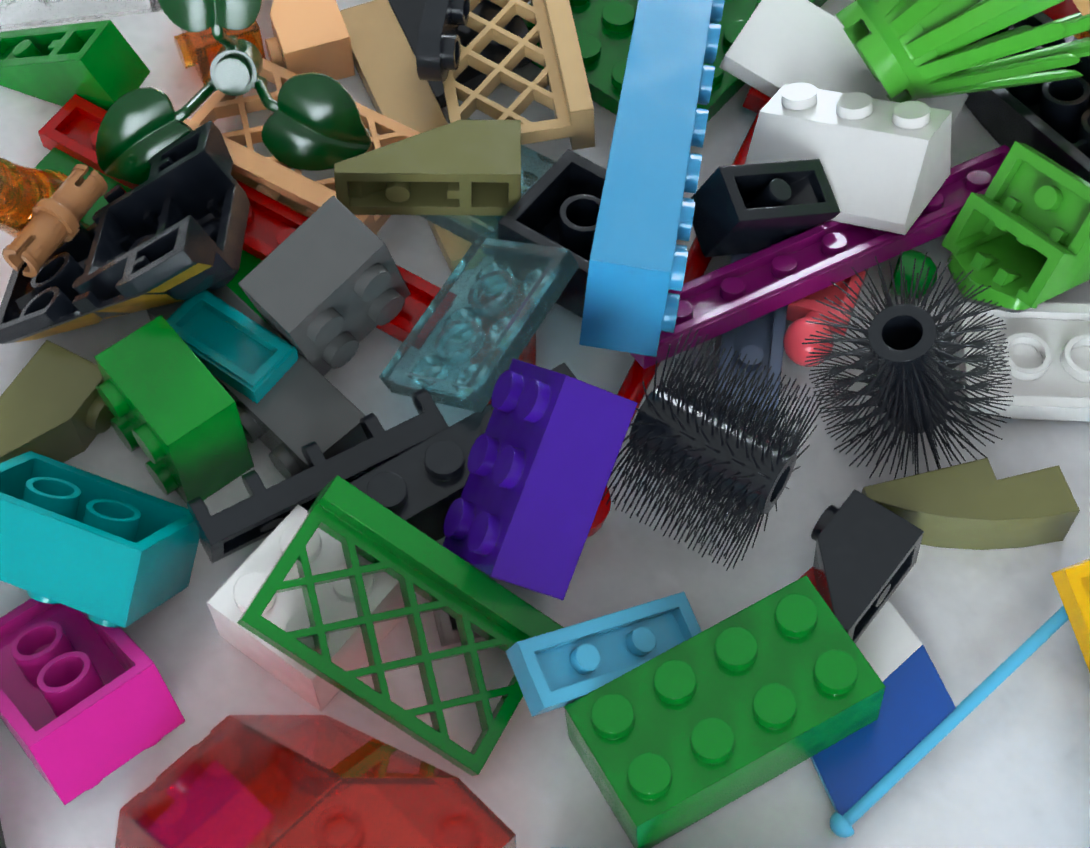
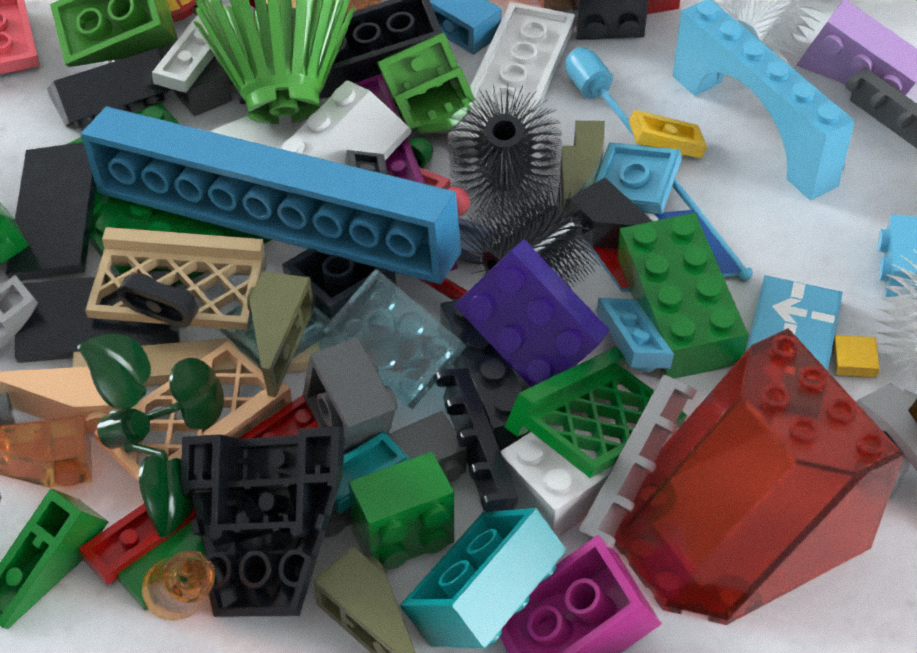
camera: 75 degrees left, 10 degrees down
(55, 220) = (220, 553): medium nougat pin -> none
(315, 693) = (636, 459): none -> light grey hinge
(988, 598) = (641, 173): none -> medium azure tile

